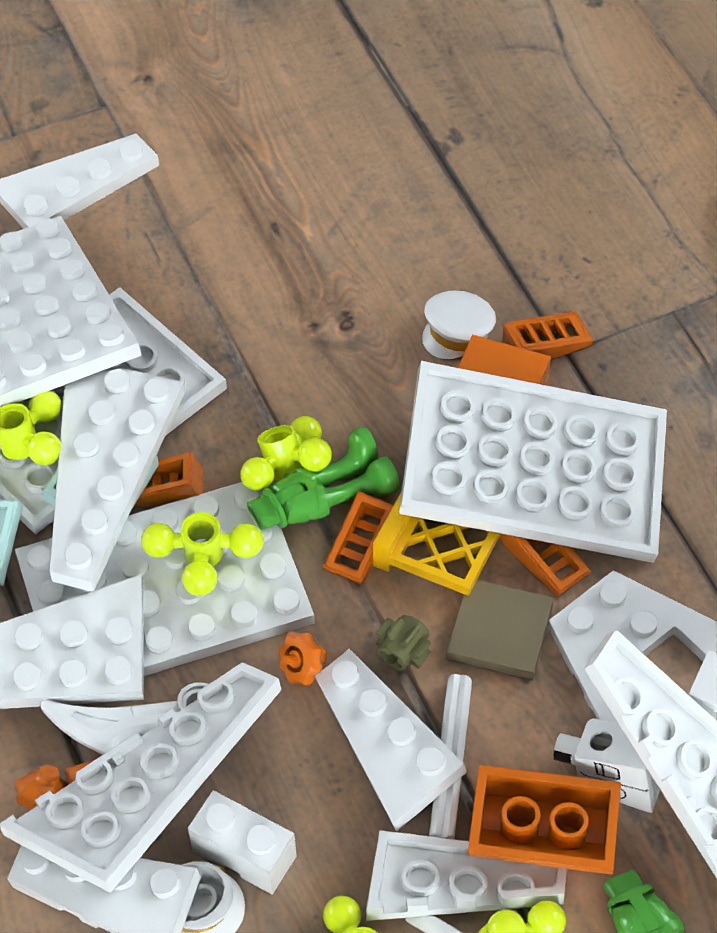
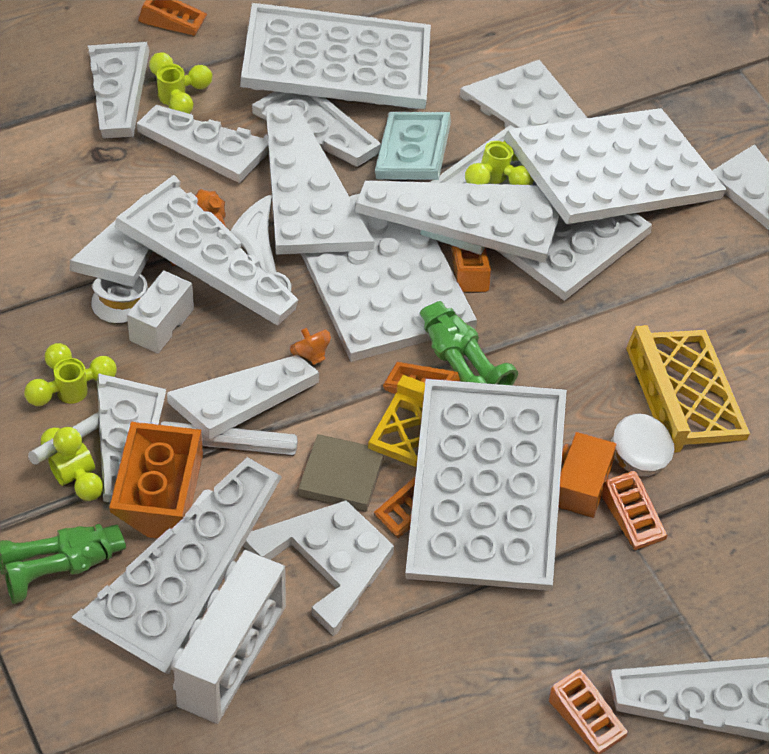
camera: 85 degrees right, 5 degrees down
(200, 576) = (400, 273): neon yellow piece -> none
(284, 450) = (493, 327): neon yellow piece -> none
(370, 296) = (662, 389): none -> yellow fence
(403, 642) = (322, 403): olive gear -> none

